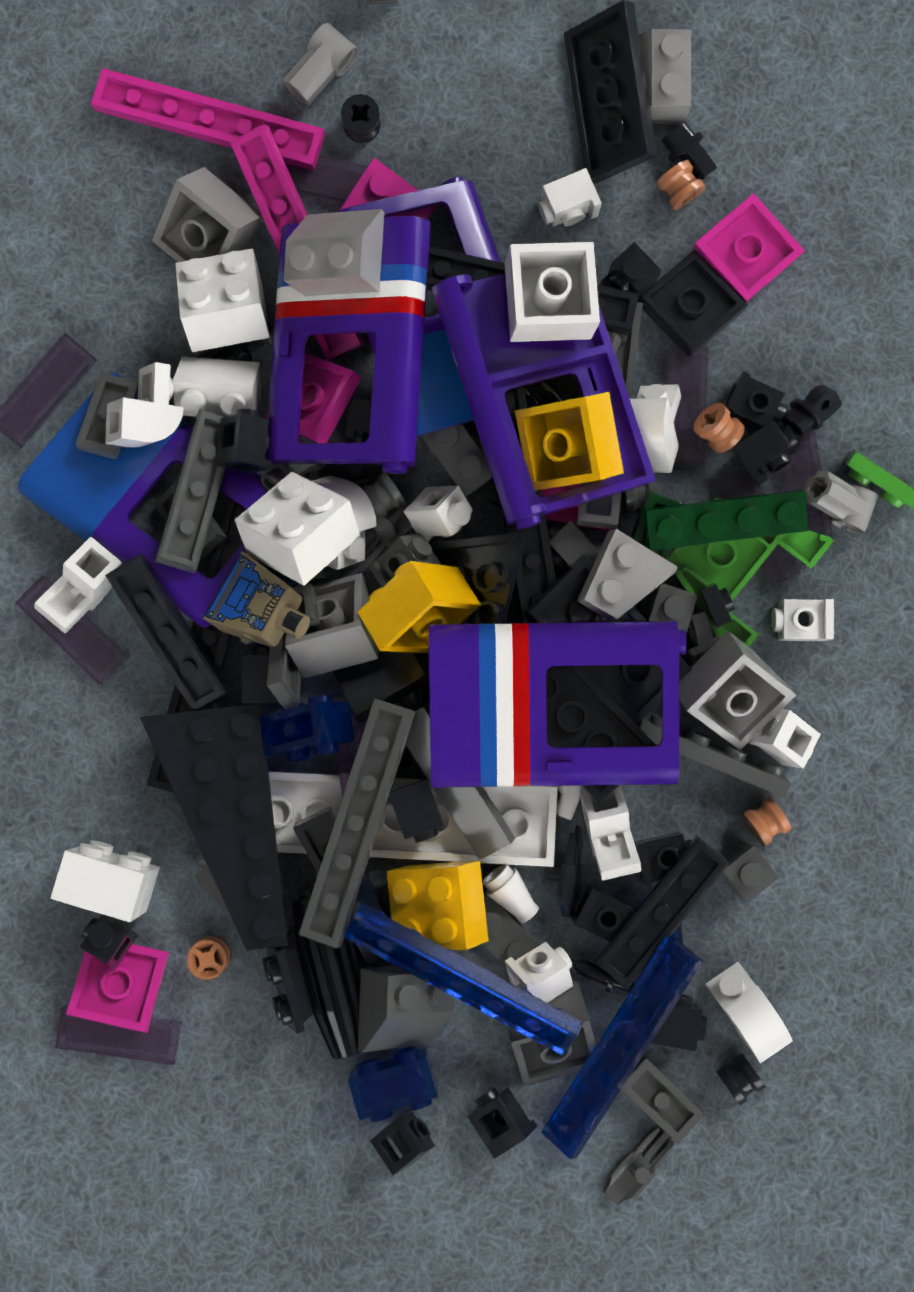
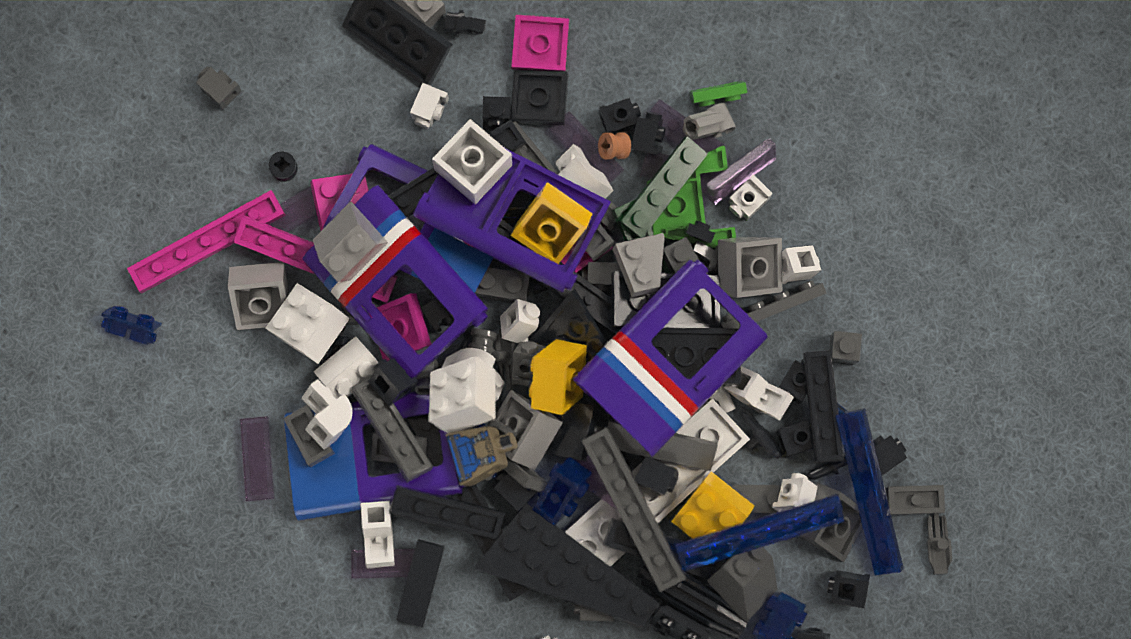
camera: 45 degrees left, 5 degrees down
(44, 115) = (141, 325): none -> clear blue hinge
(76, 676) = (420, 583): none -> black tile
(325, 58) = (235, 157): light grey piece -> none
(509, 891) = (741, 473): white cone -> none
(681, 184) = (475, 45): nougat wheel -> none
(741, 1079) = (943, 451): black wheel -> none
(750, 1012) = (915, 413): white brick -> none
(767, 821) = (830, 313): nougat wheel -> none
(813, 410) = (651, 92): black piece -> none
(824, 584) = (741, 171): none -> clear purple tile

